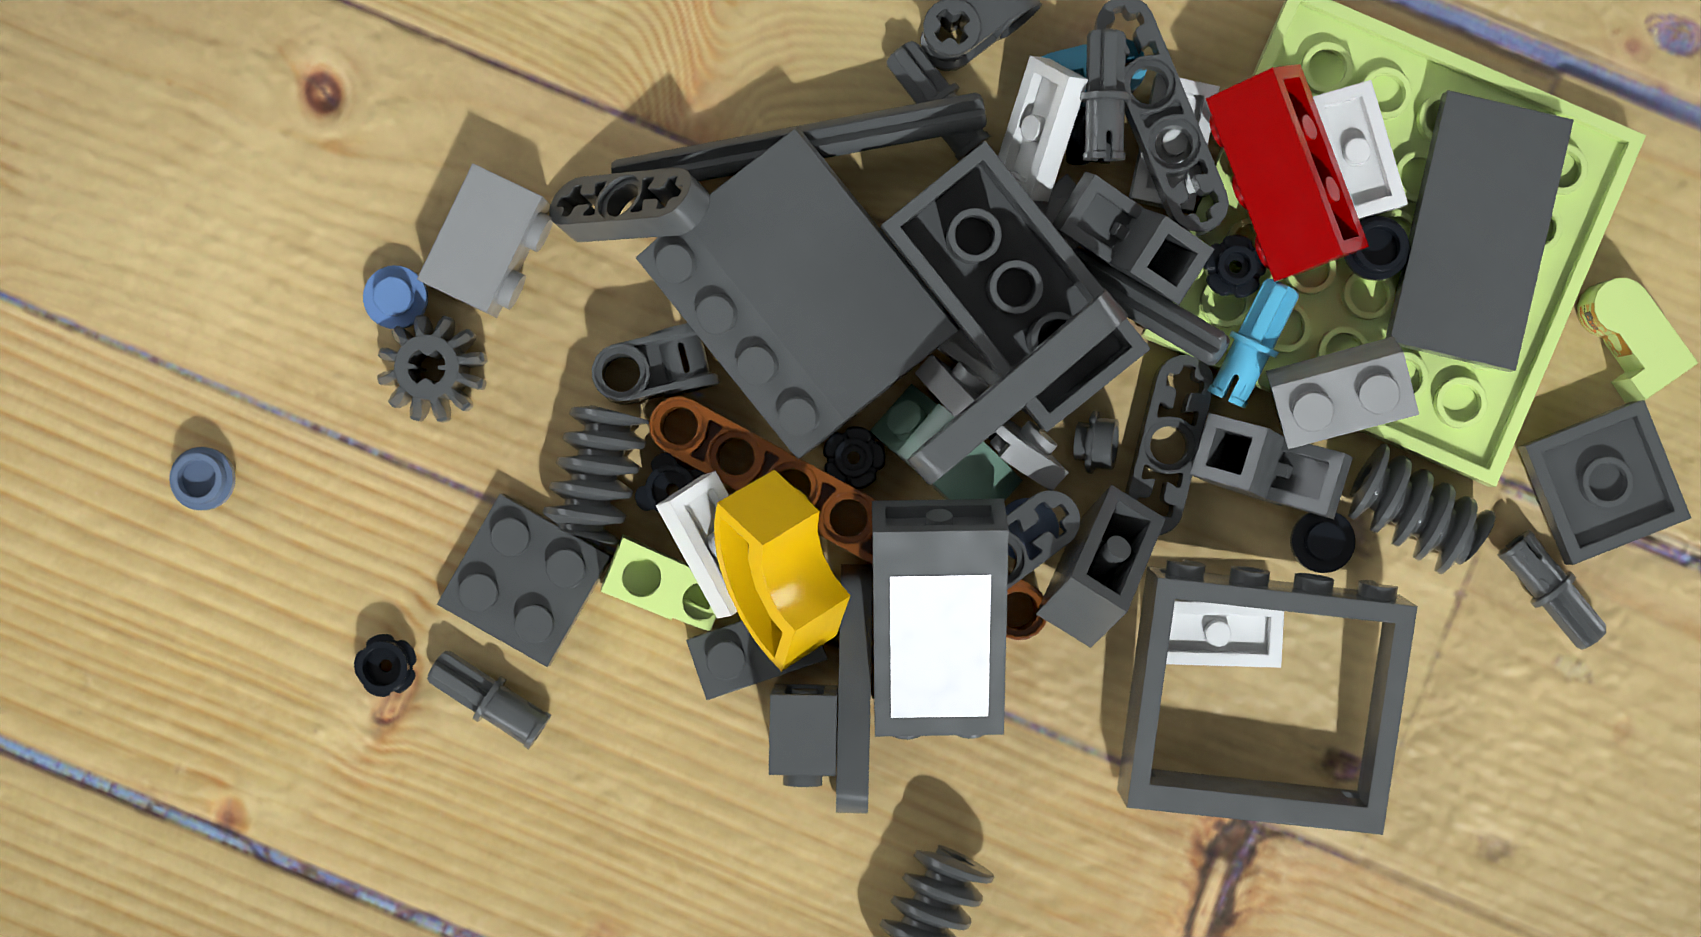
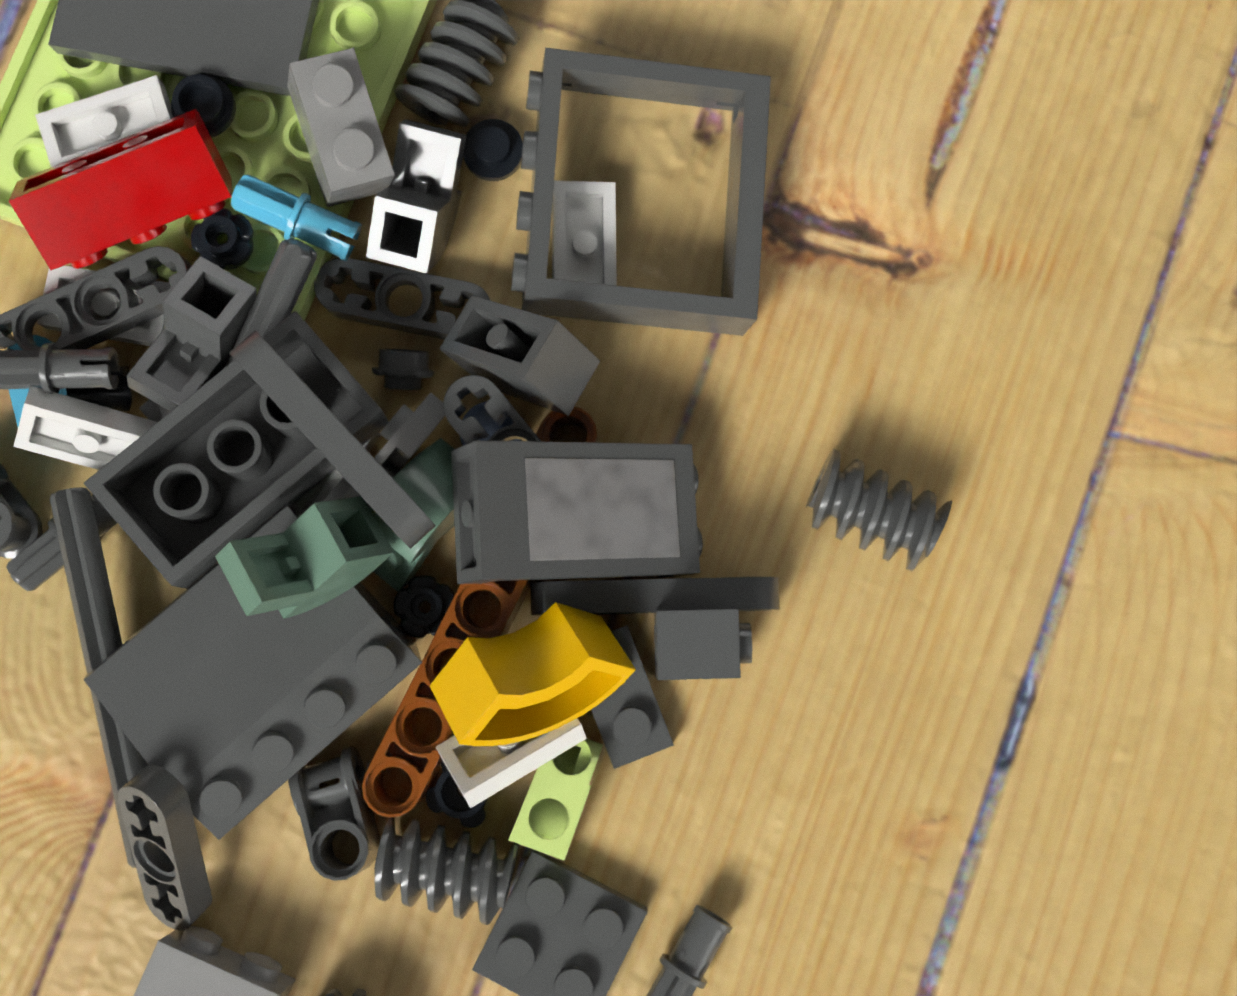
camera: 90 degrees left, 5 degrees down
(901, 361) = (308, 563): none -> sand green brick

